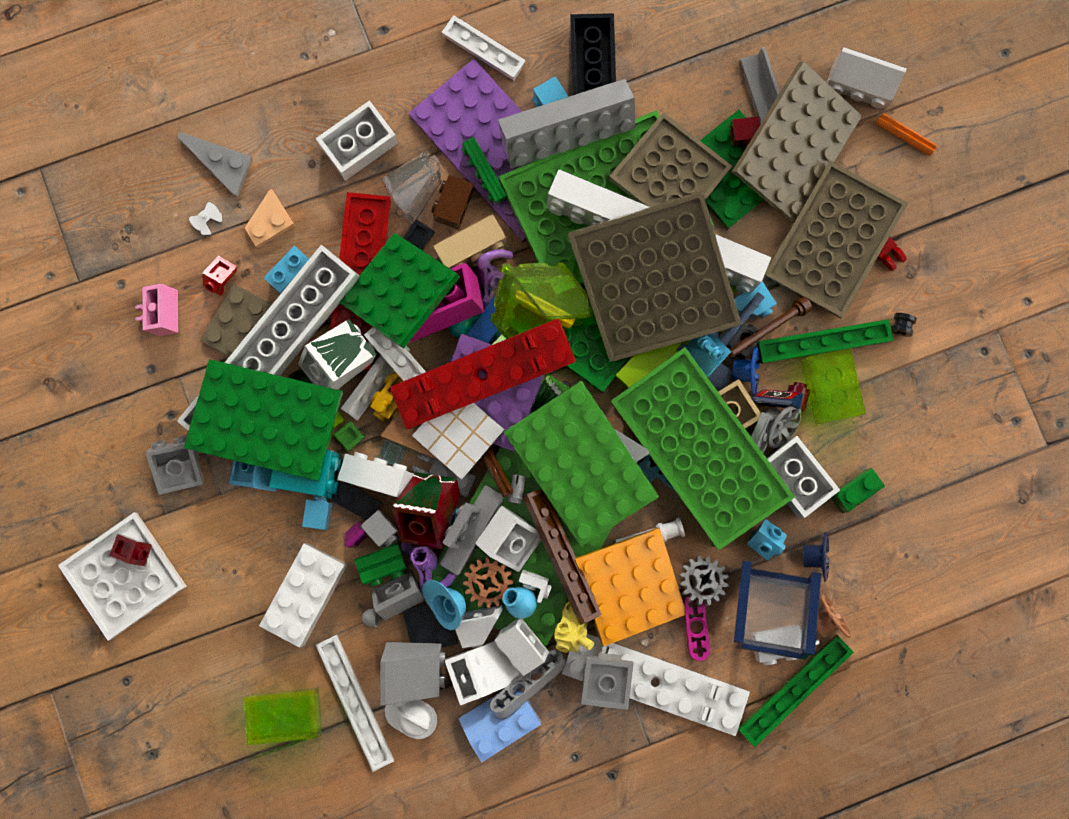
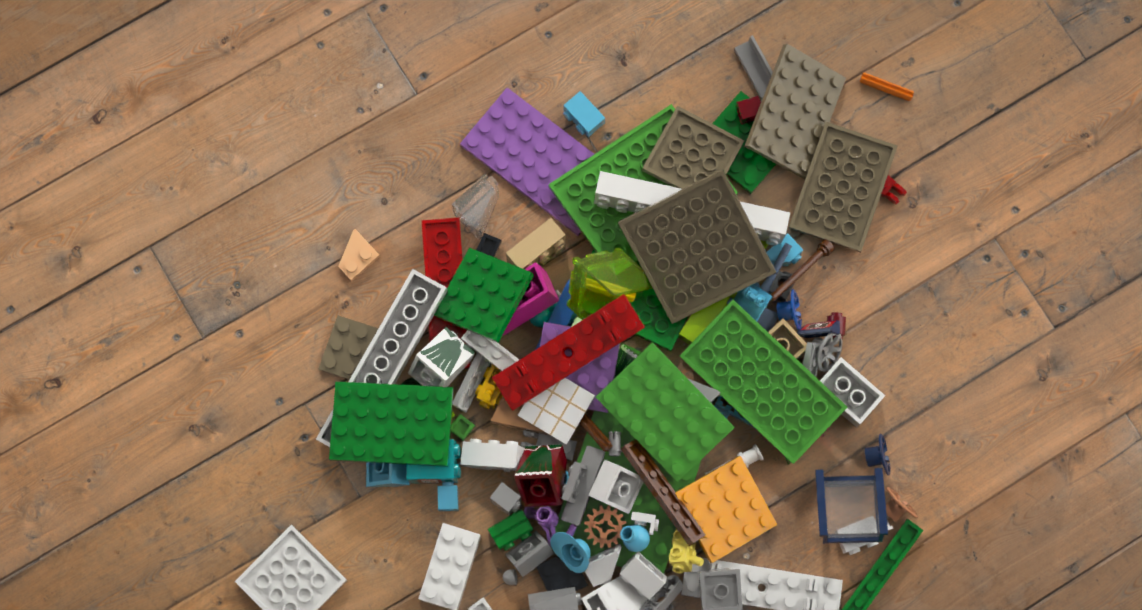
camera: 10 degrees left, 5 degrees down
(130, 550) = (295, 556): dark red bracket -> none
(159, 310) = (279, 349): bright pink brick -> none
(174, 466) = (318, 478): light grey plate -> none
(199, 221) = (298, 267): white piece -> none
(217, 275) = (323, 310): bracket -> none
(226, 164) = (310, 214): light grey wing -> none
(286, 269) = (384, 296): medium azure brick -> none
(355, 535) = (484, 508): magenta slope -> none
(356, 501) = (478, 481): black plate -> none
(357, 140) = (421, 175): white brick -> none
(392, 452) = (501, 433): clear light blue tile -> none
(453, 202) = (513, 212): reddish brown brick -> none
(483, 48) = (513, 76): white plate -> none
(483, 171) = (534, 182): green piece -> none
(489, 275) = (555, 269): medium lavender piece -> none
(567, 123) = (599, 130): light grey brick -> none
(592, 51) = (609, 71): black brick -> none
(693, 644) = (797, 546): dark pink beam -> none
(695, 576) = (794, 497): light grey gear -> none
(767, 540) = (833, 449): medium azure brick -> none
(825, 341) = (850, 274): green plate -> none
(833, 387) = (864, 311): clear neon green brick -> none
(857, 490) = (900, 394): green brick -> none
(865, 78) = (842, 47): white slope -> none
(903, 324) = (914, 248): black wheel -> none

